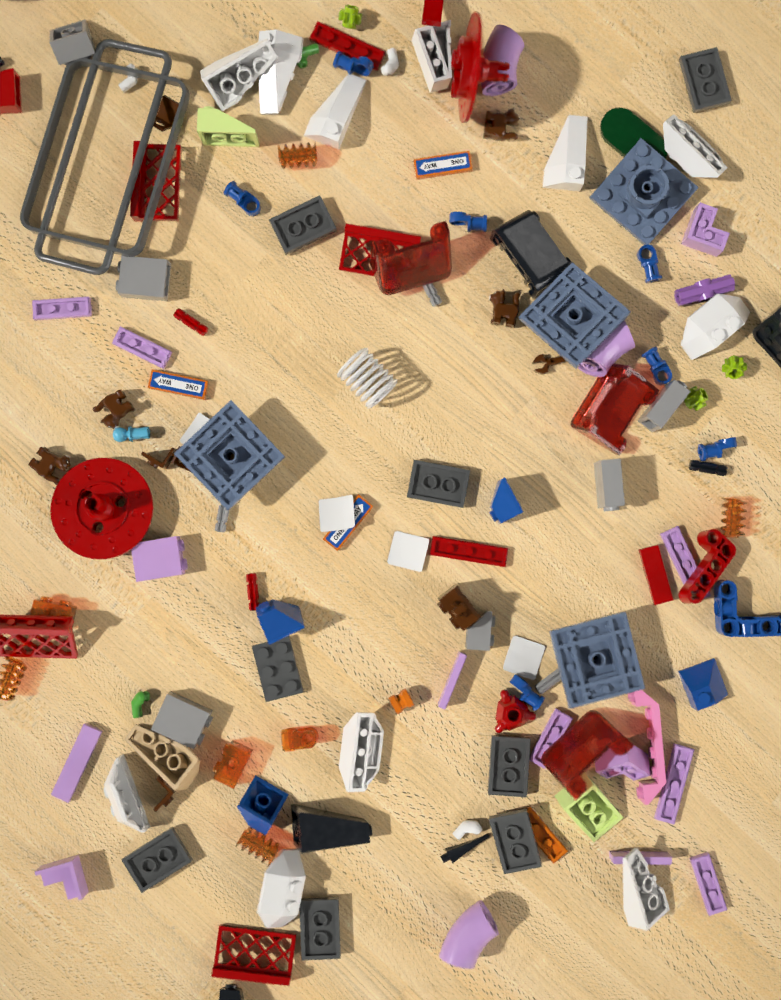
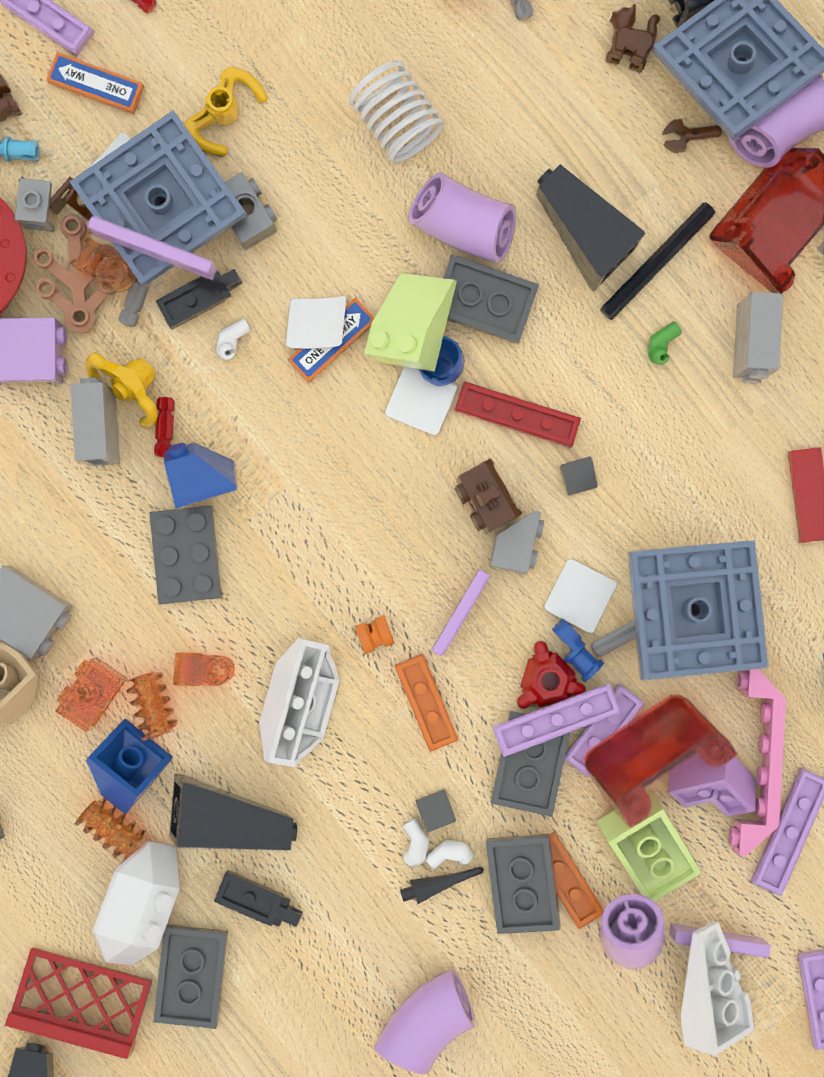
camera: 10 degrees right, 0 degrees up
(152, 467) = (34, 204): none -> light grey bracket
(185, 508) = (73, 280): none -> nougat plant
(197, 498) = (99, 263): none -> clear orange piece
(210, 597) = (94, 423): none -> light grey brick
(226, 569) = (127, 382): none -> yellow piece
(231, 488) = (152, 247): none -> lavender tile
(255, 384) = (222, 107): none -> yellow piece
(261, 508) = (197, 297): none -> black hinge
(271, 765) = (151, 705): none -> clear orange piece
(284, 531) = (228, 339): none -> white arm
(294, 454) = (260, 222): none -> flat silver brick
(353, 876) = (256, 901): none -> black hinge
(395, 505) = (411, 322): none -> yellowish green slope
(417, 437) = (464, 218): none -> lavender brick
(417, 527) = (448, 366): none -> blue hair
(439, 737) = (426, 702): none -> orange tile
(448, 825) = (419, 843): none -> white arm
(455, 804) = (435, 810): none -> dark grey slope
(495, 430) = (588, 225): none -> black slope
(504, 503) = (587, 343): blue slope -> none
(512, 584) = (578, 475): none -> dark grey slope
(520, 737) = (556, 719): none -> lavender tile
(541, 443) = (657, 260): none -> black axle
(549, 494) = (659, 343): none -> bright green arm
(586, 862) = (632, 931): none -> lavender brick

